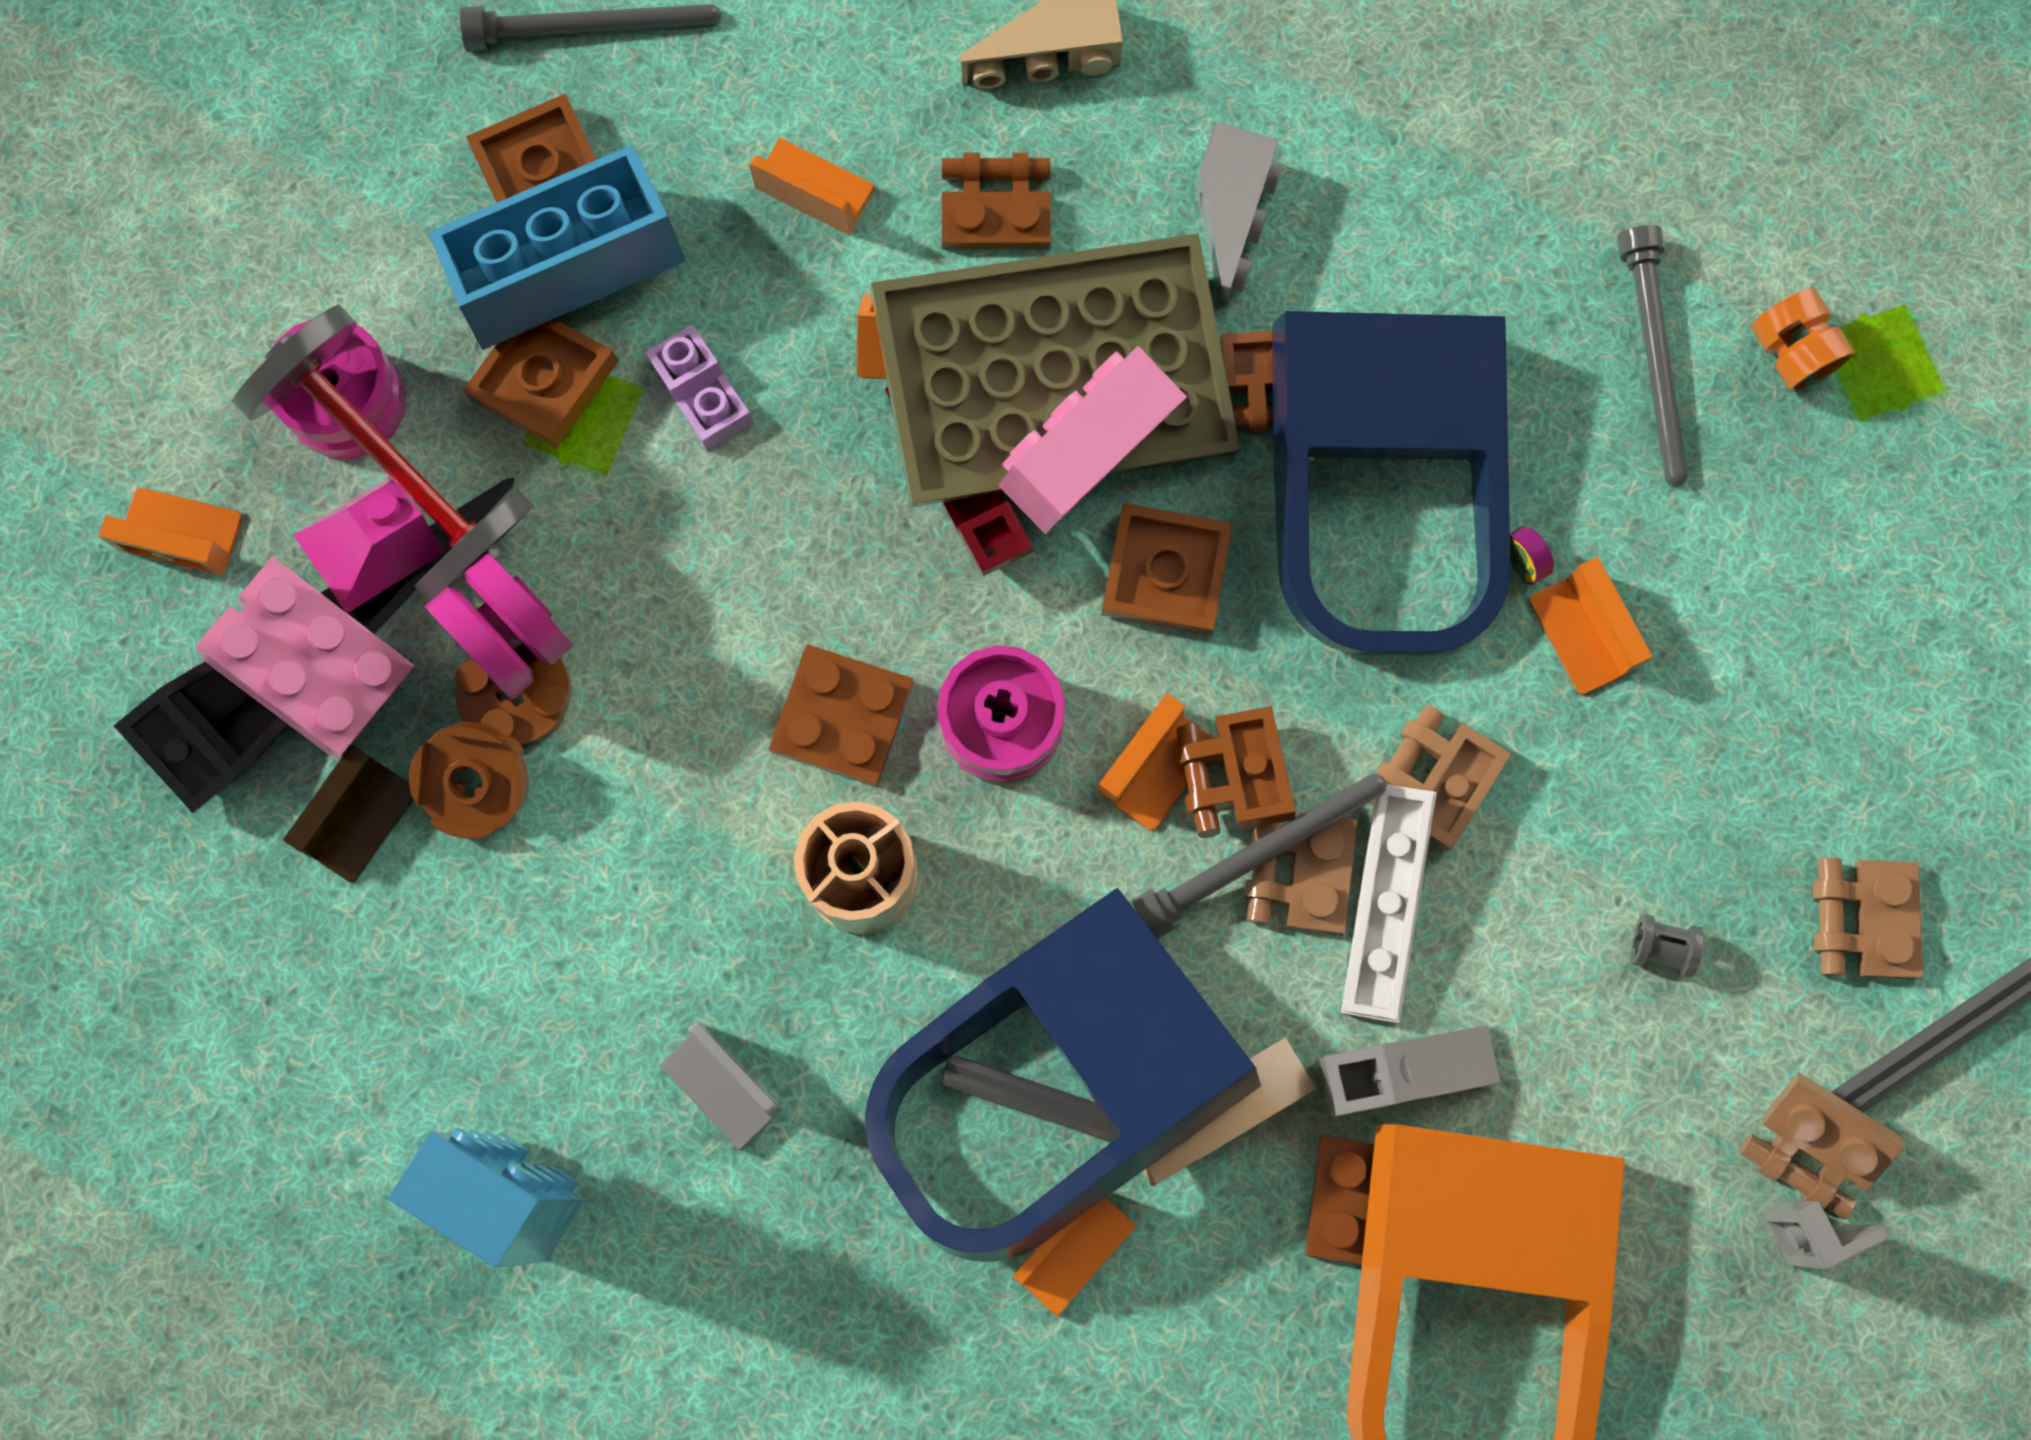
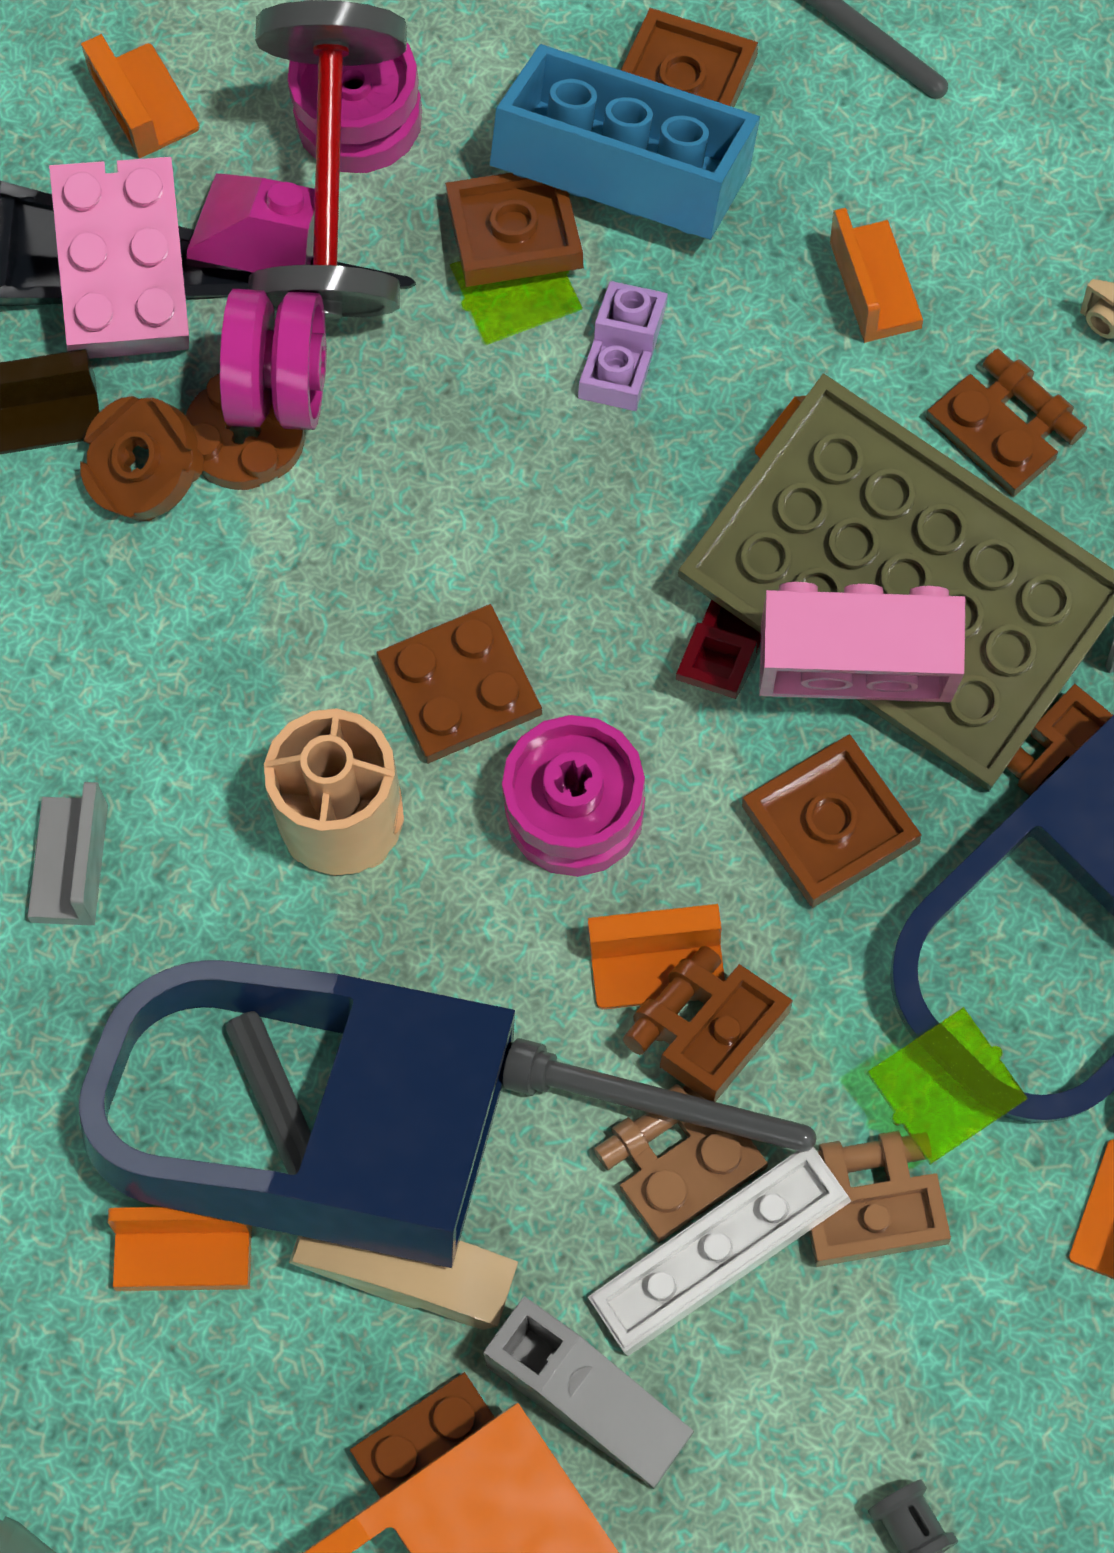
camera: 50 degrees right, 10 degrees down
(1416, 664) = (946, 1085): none -> clear neon green piece

